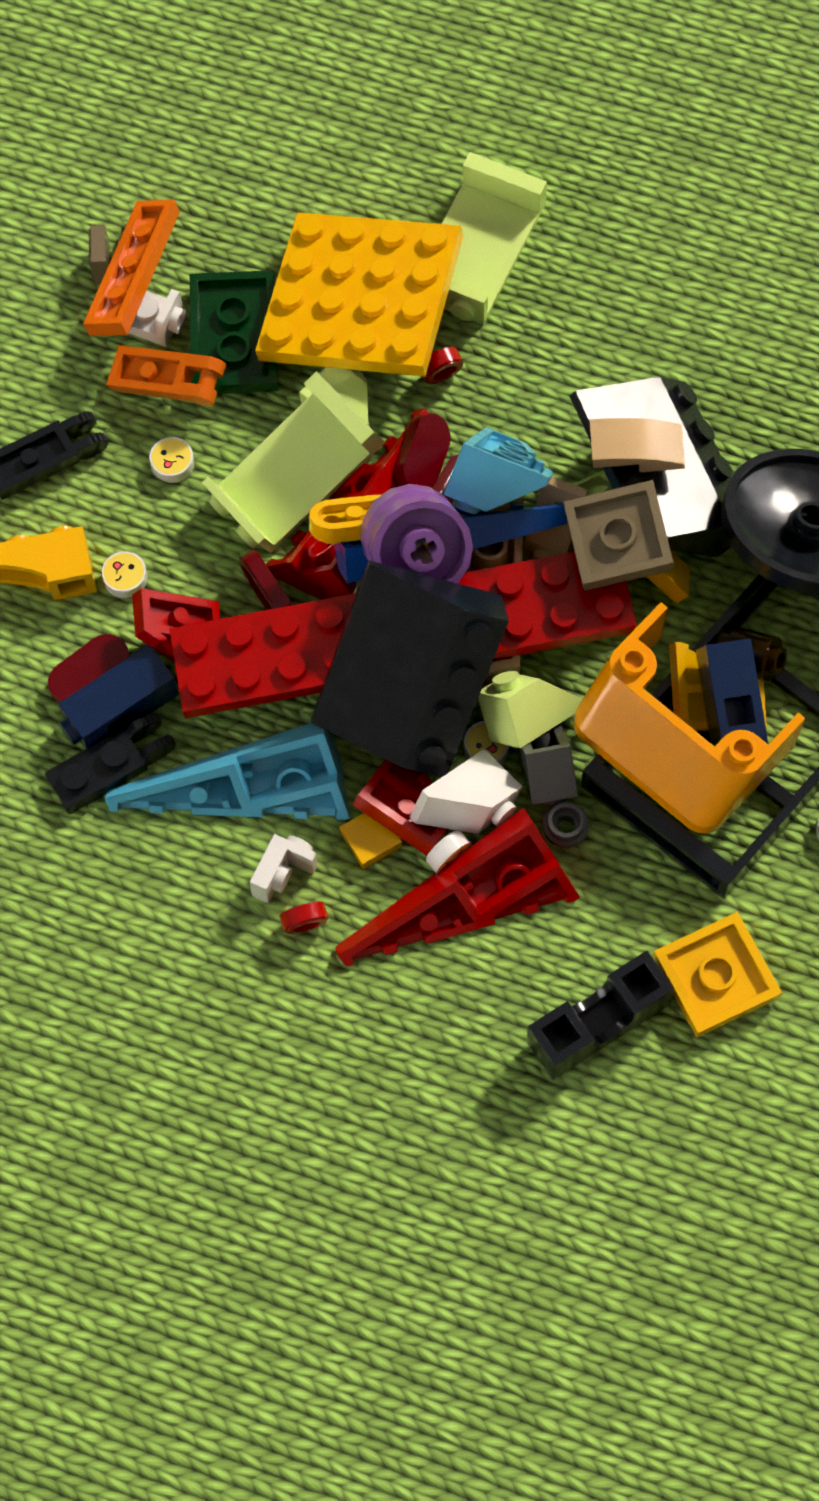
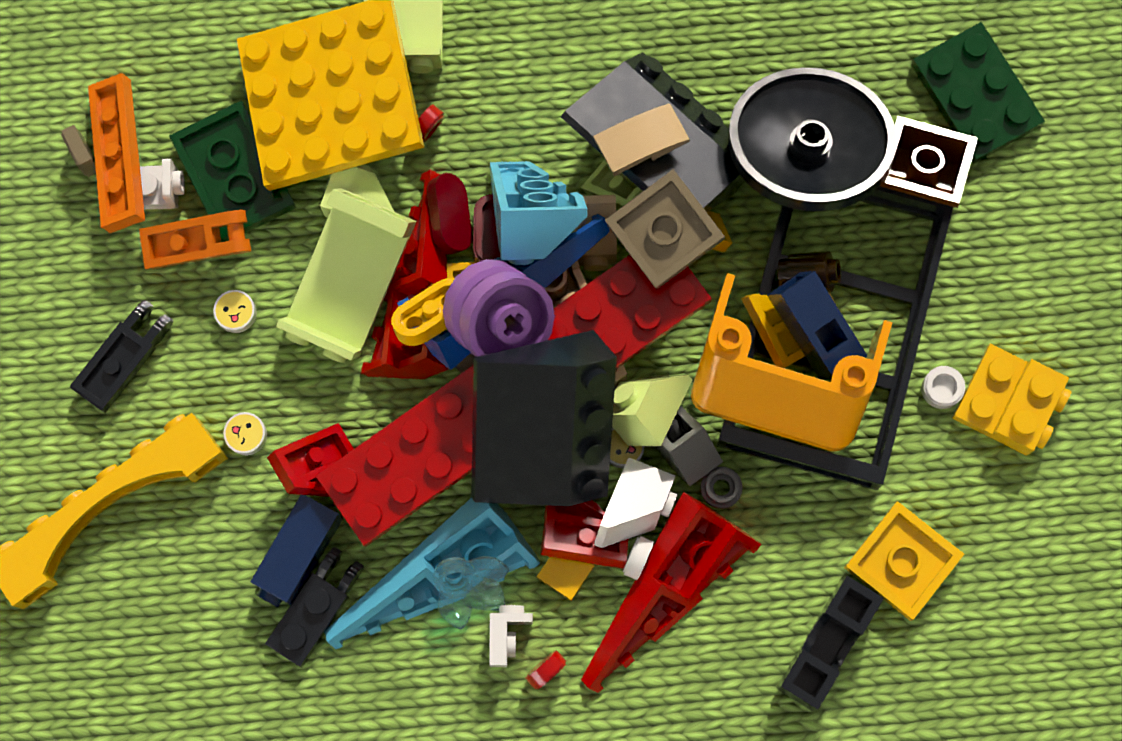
camera: 25 degrees left, 10 degrees up
(86, 665) = (256, 532): dark red tile -> none
(262, 581) = (373, 392): dark red tile -> none
(267, 811) = (474, 588): none -> clear light blue plate

